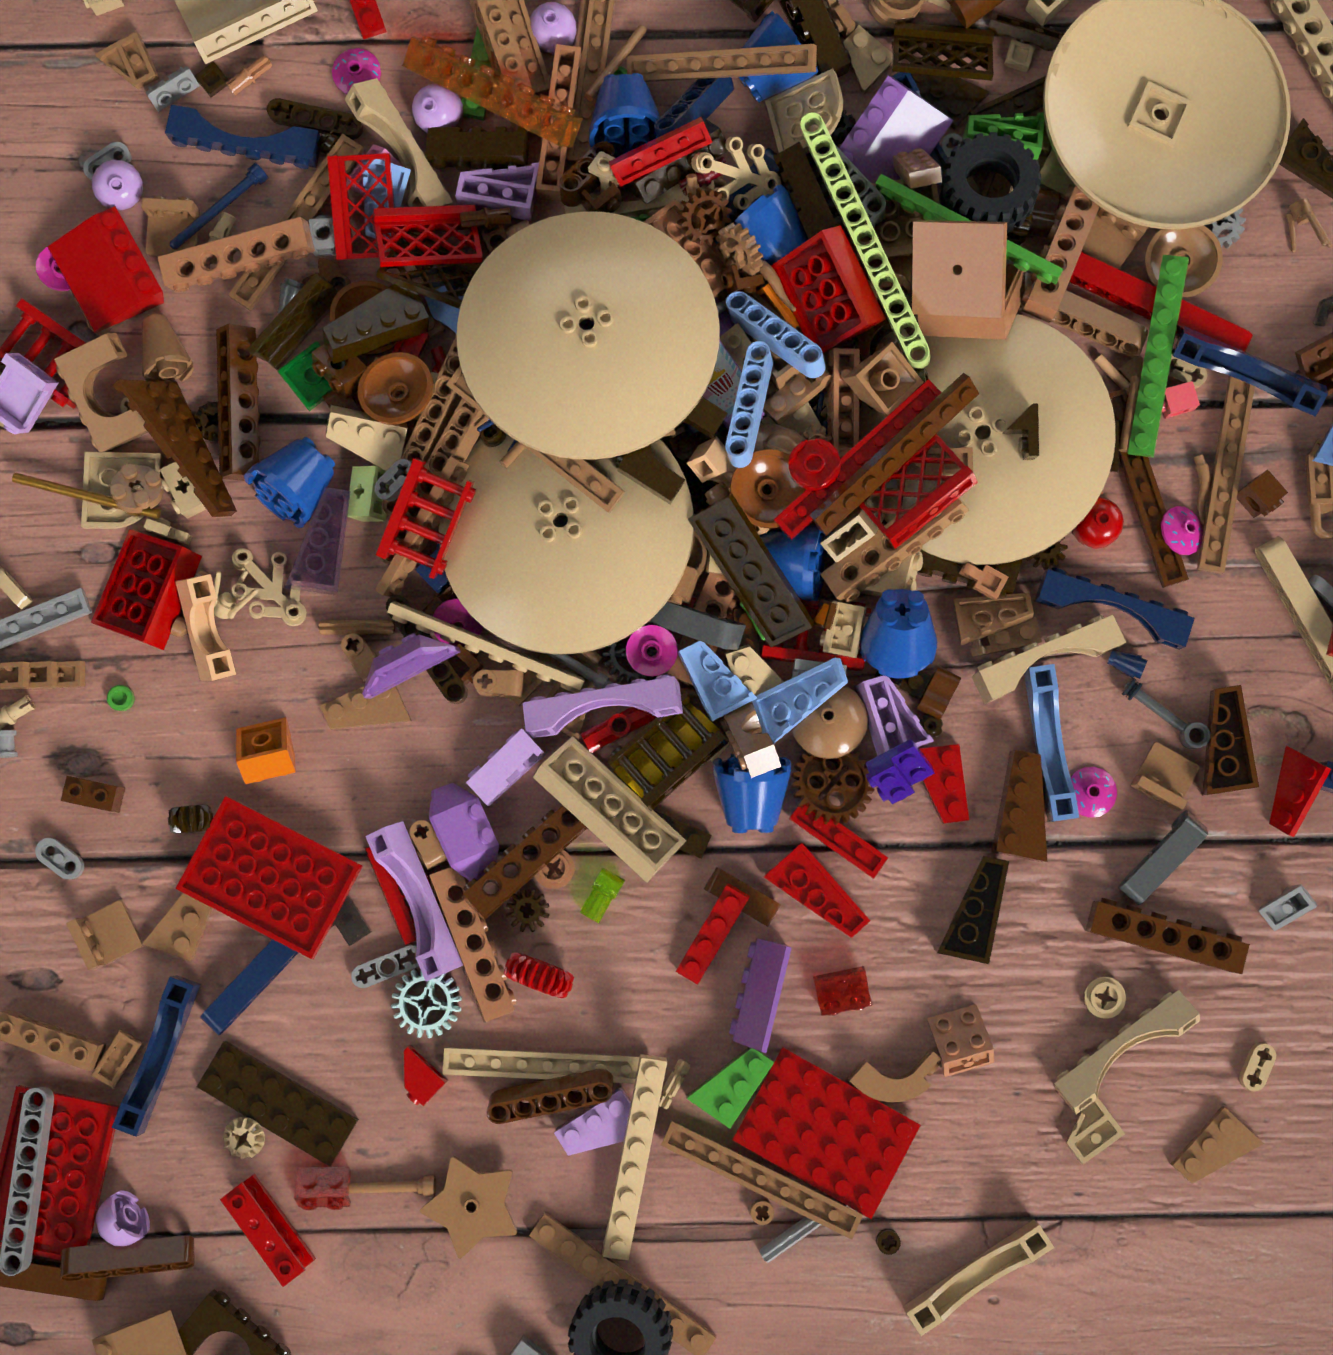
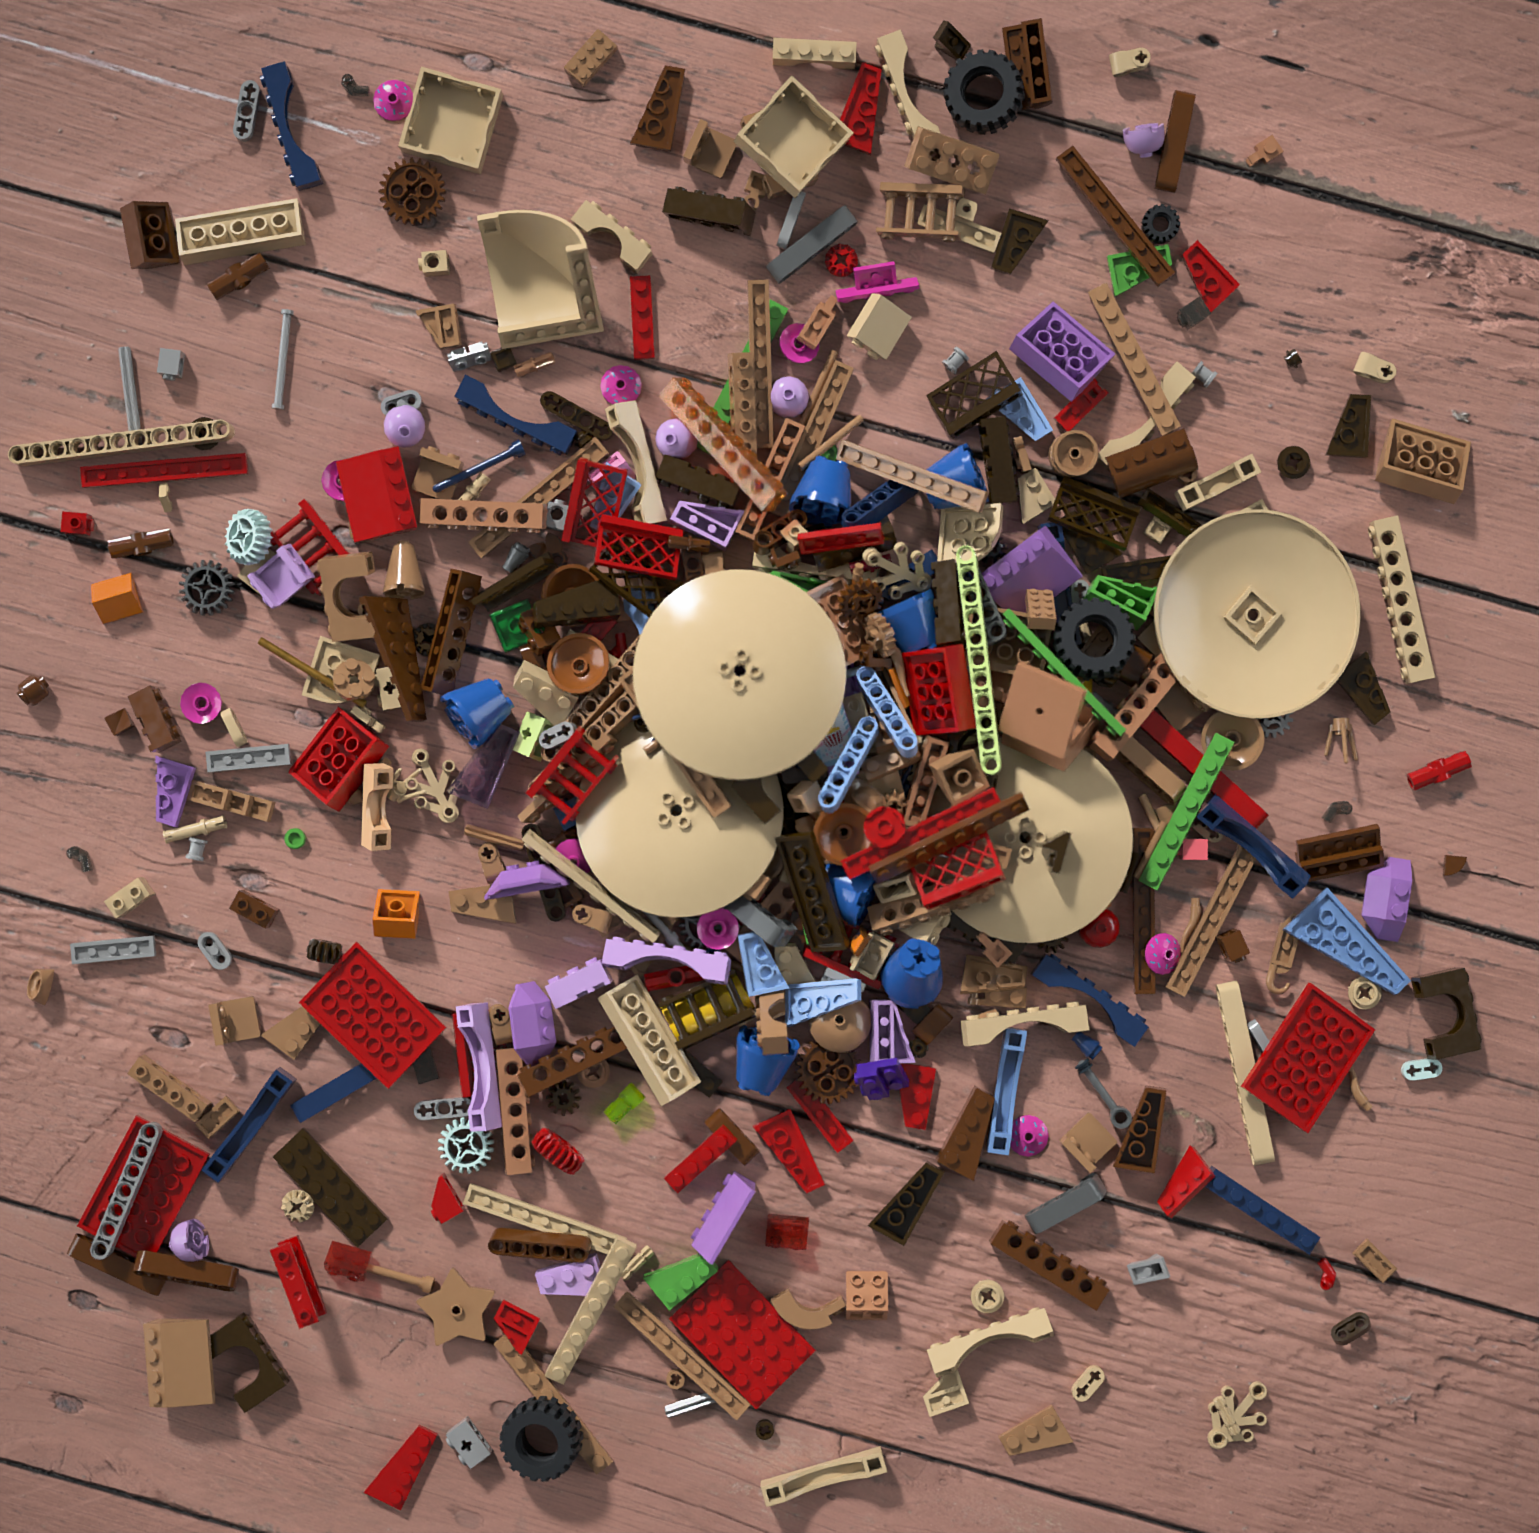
camera: 20 degrees right, 5 degrees up
(549, 1203) = (516, 1325): none -> red wing

